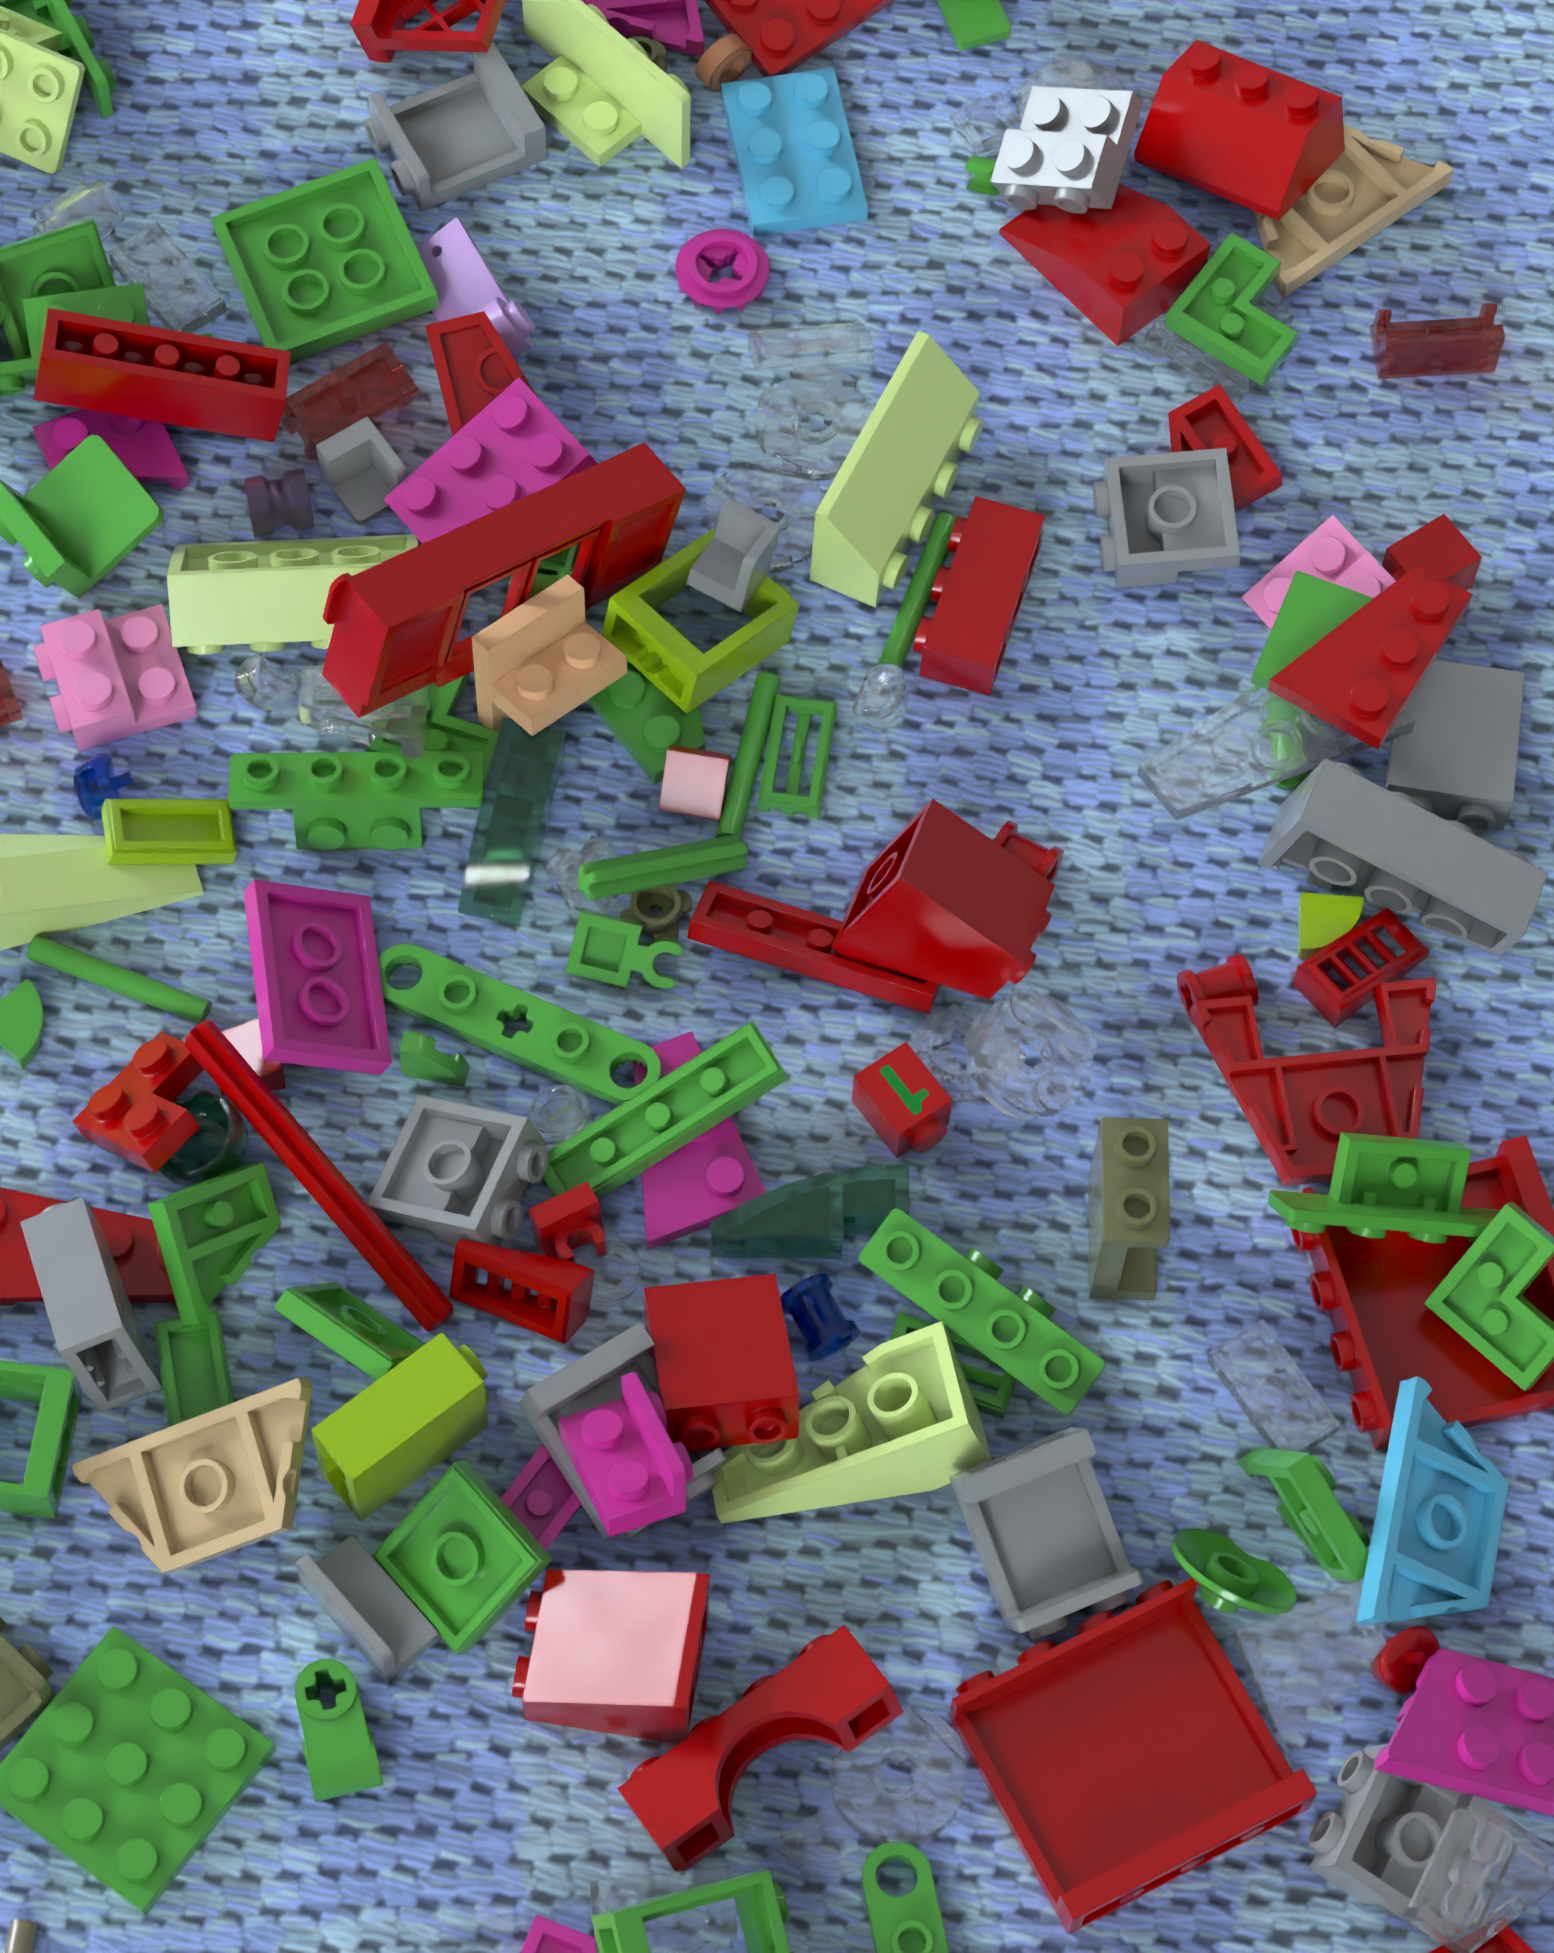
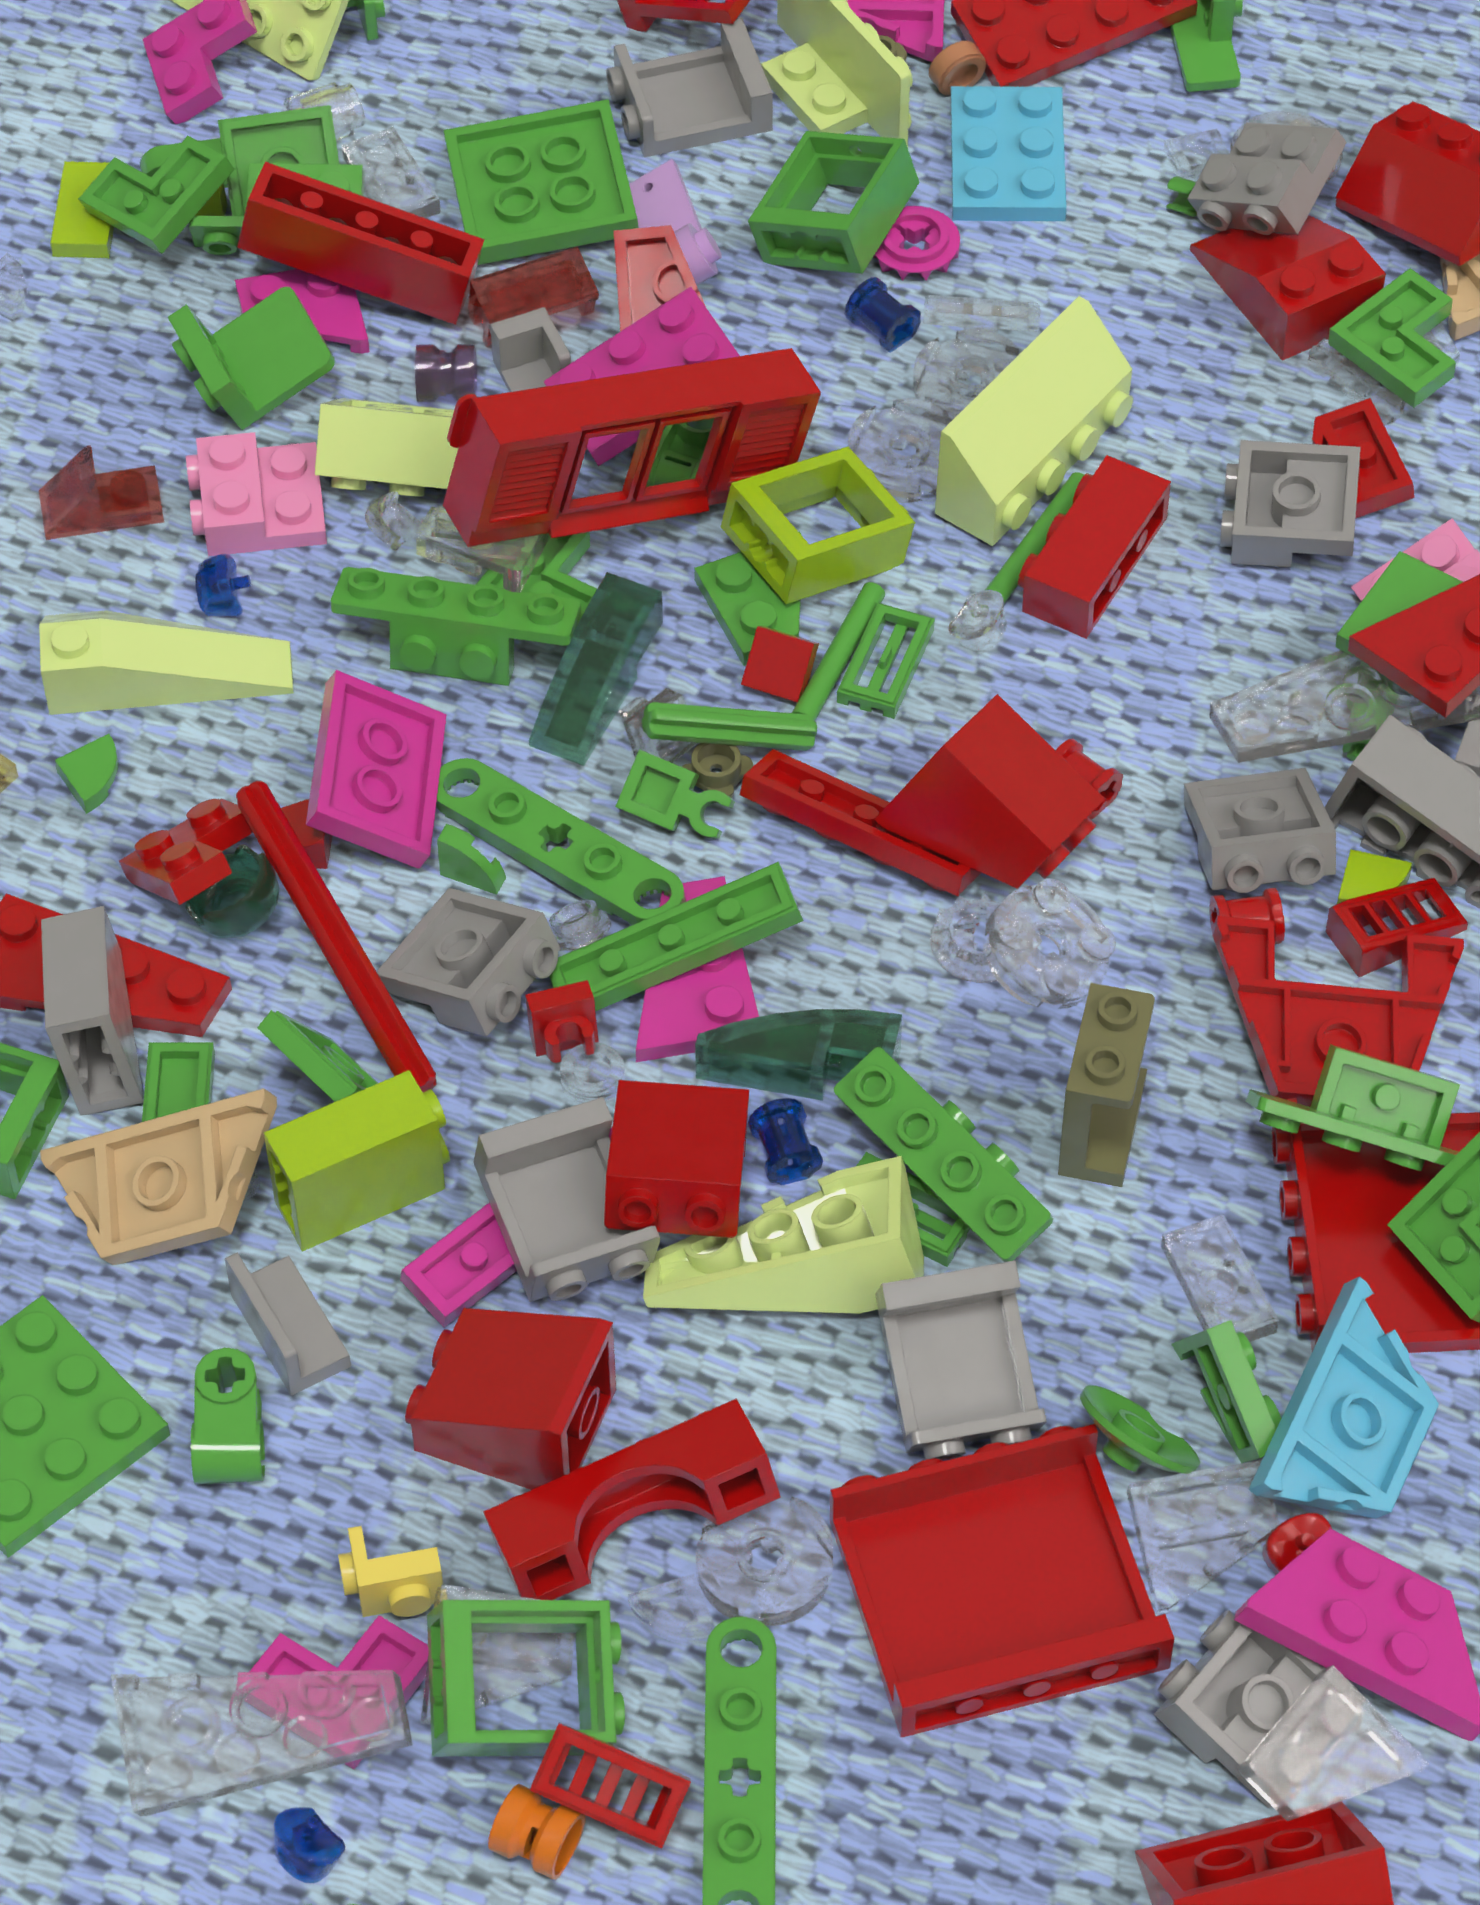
camera: 15 degrees right, 10 degrees down
(119, 979) = (188, 746): bright green bar -> none
(168, 831) = (272, 630): lime tile -> none
(212, 1234) = (222, 970): bright green wing -> none
(462, 1557) = (386, 1288): bright green tile -> none
(542, 660) = (654, 524): light nougat bracket -> none
(548, 1876) = (390, 1583): none -> light yellow bracket
(561, 1286) = (544, 1072): red slope -> none
(628, 1459) = (562, 1215): dark pink bracket -> none
(634, 289) = (803, 238): none -> bright green window
(709, 362) = (882, 314): none -> clear blue bush
(736, 556) = (861, 468): light grey panel -> none
(902, 1101) = (912, 966): red brick -> none
(1211, 887) = (1261, 830): none -> light grey plate

